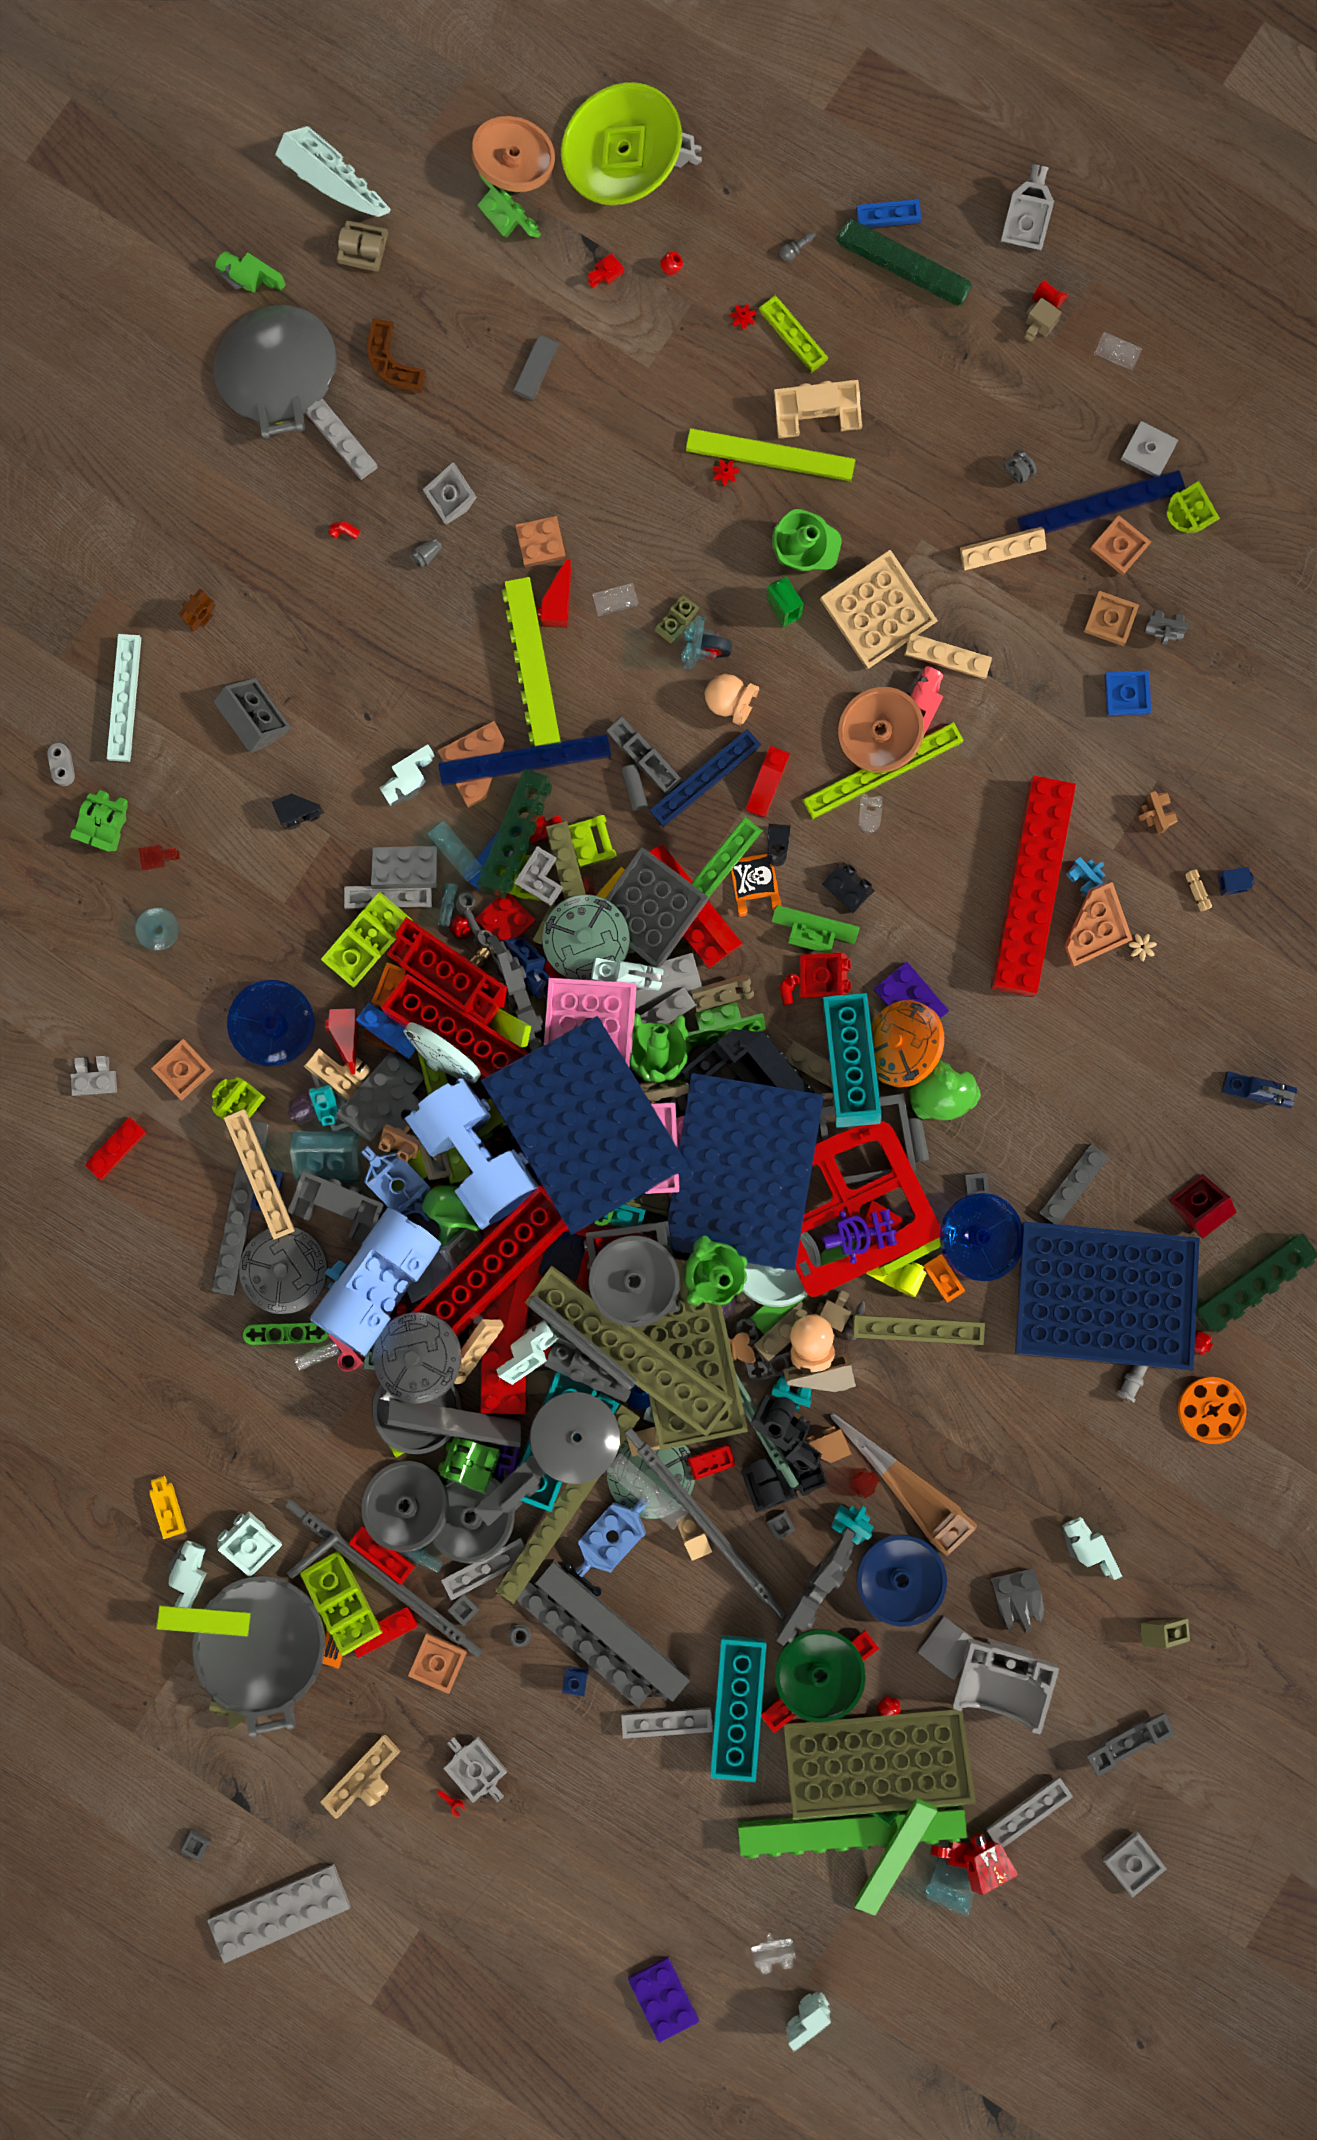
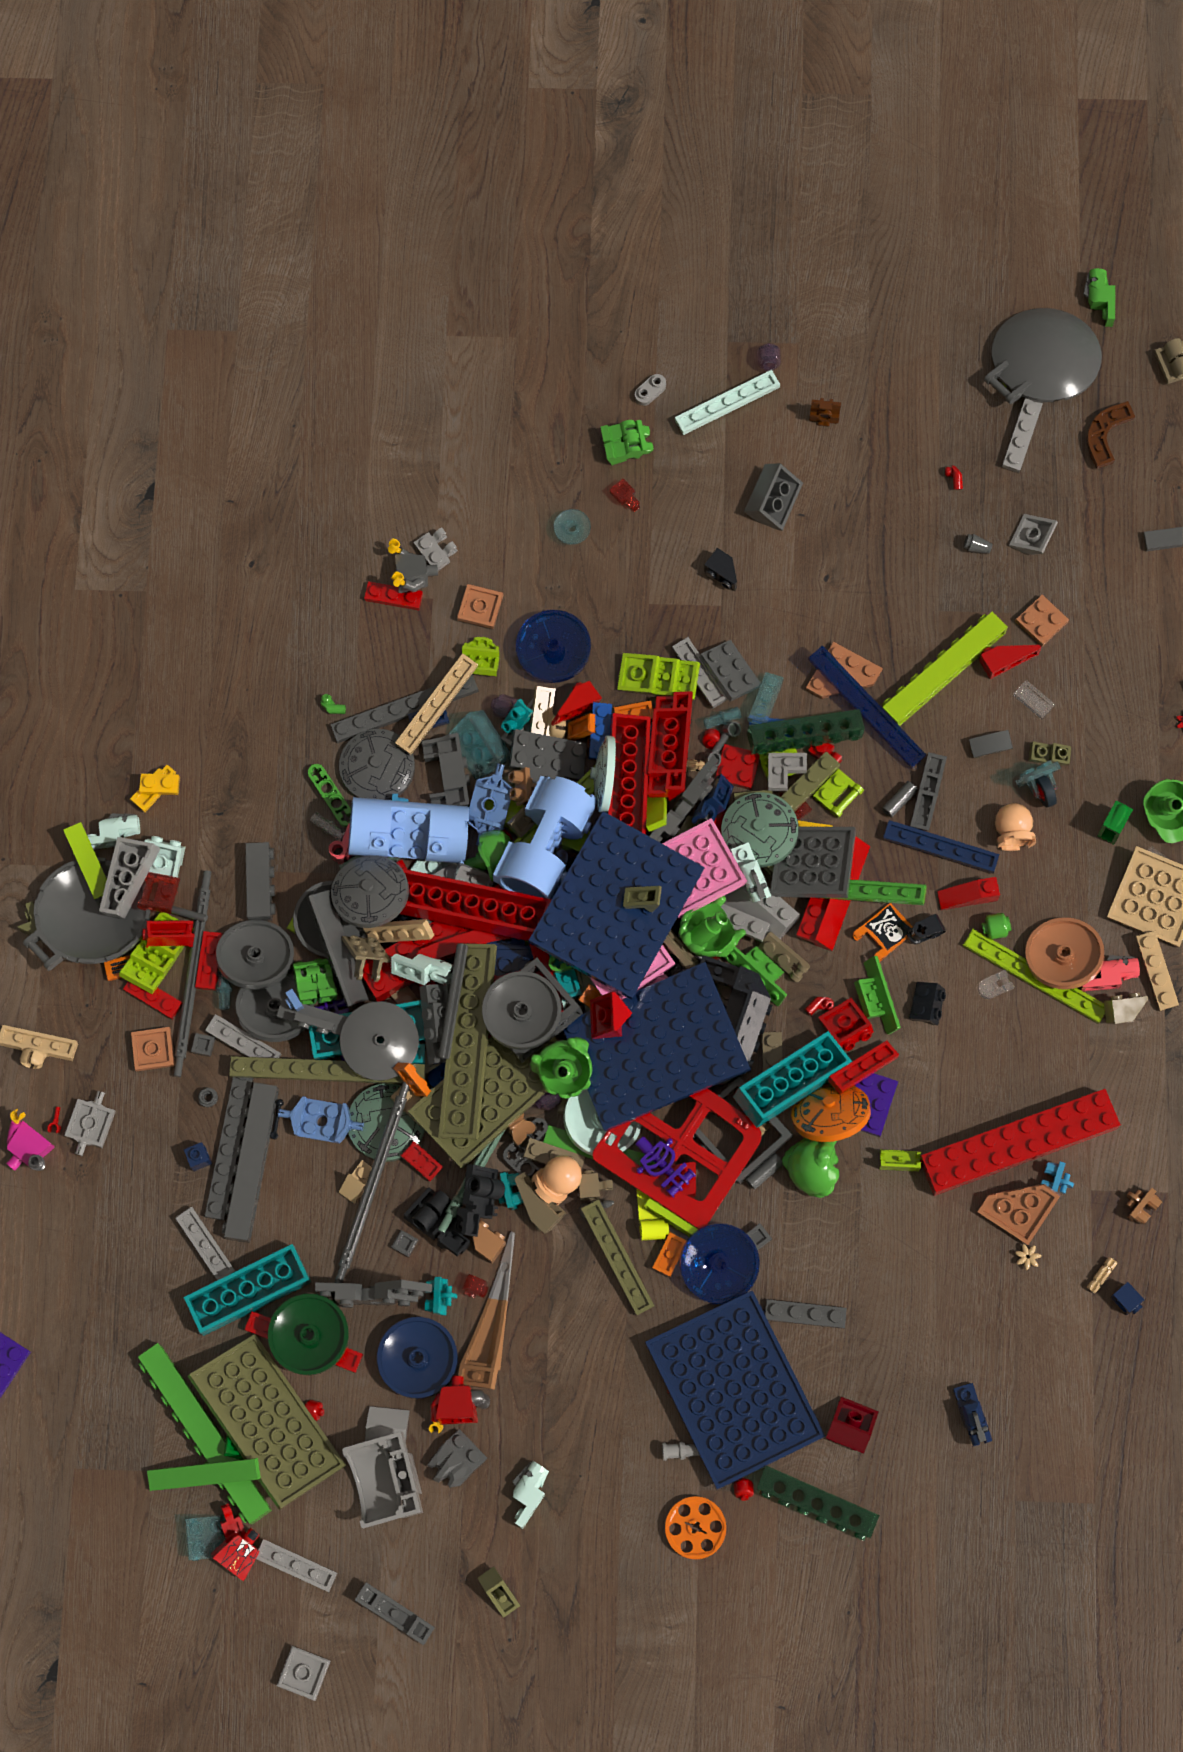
camera: 60 degrees right, 10 degrees down
(99, 1115) = (410, 569): none -> dark grey torso
(103, 628) = (769, 357): none -> head
(167, 1500) = (159, 784): none -> yellow plate
(192, 1280) = (332, 708): none -> bright green arm
(245, 1591) = (126, 875): none -> light grey wedge
(287, 1561) = (165, 893): none -> clear red plate
(325, 1578) = (168, 933): none -> red window
(331, 1457) = (259, 881): none -> dark grey brick
(373, 1046) = (581, 727): none -> orange tile
(408, 777) = (799, 632): light aqua plate -> none
(460, 1847) = (26, 1144): none -> dark pink torso
(473, 1395) = (366, 949): none -> dark tan plate
(485, 1501) = (293, 1001): none -> medium blue plate
(597, 1095) = (642, 897): none -> olive slope
(634, 667) = (991, 743): none -> dark grey slope
(637, 1426) = (412, 1079): none -> orange plate
(646, 1491) = (370, 1122): clear plate -> none
(654, 1203) = (589, 993): none -> orange plate
(688, 1200) = (607, 1016): none -> red slope
(773, 1952) = (79, 1426): clear hips -> none
(812, 2019) = (48, 1482): light aqua plate -> none
(815, 775) = (996, 926): none -> bright green head
(877, 986) = (863, 1067): none -> red plate
(966, 710) = (1123, 1009): none -> slope
(970, 1568) = (457, 1404): none -> red torso
(982, 1006) = (900, 1160): none -> lime hinge

